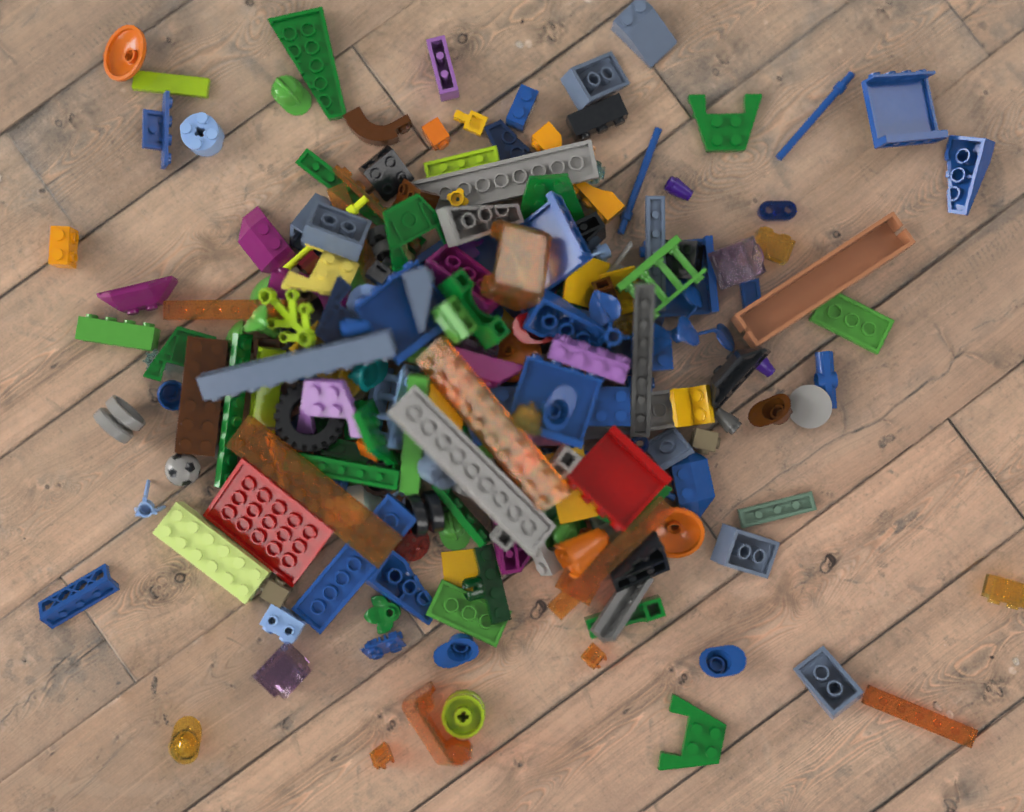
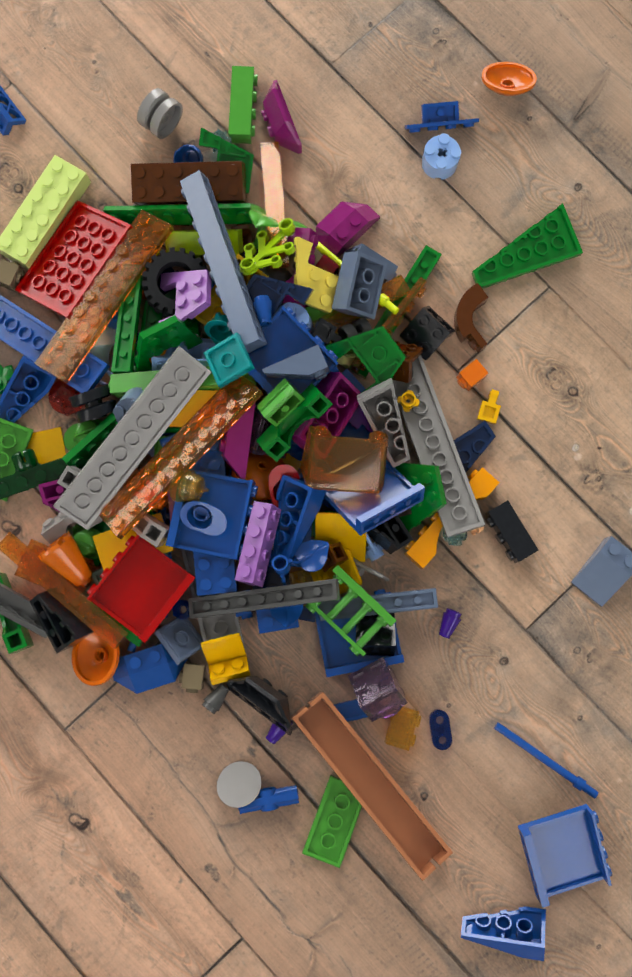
camera: 85 degrees right, 5 degrees down
(63, 247) = (318, 47): light orange brick -> none
(147, 507) = (78, 146): light blue plant -> none
(176, 84) = (487, 124): lime tile -> none
(182, 469) = (117, 175): light grey piece -> none
(291, 95) = (492, 235): bright green piece -> none
(405, 365) = (228, 360): none -> teal tile
(442, 68) = (538, 373): medium lavender brick -> none
(461, 161) = (448, 403): lime tile -> none
(522, 108) = (510, 455): blue brick -> none
(594, 80) = (549, 525): sand blue slope -> none
(627, 214) = (416, 573): blue bar -> none
(685, 331) = (301, 642): blue plant -> none
(725, 131) = (516, 665): green wing -> none
(744, 551) = (83, 730): sand blue slope -> none
(772, 410) = (229, 743): reddish brown piece -> none
(776, 509) = (130, 761): sand green tile -> none

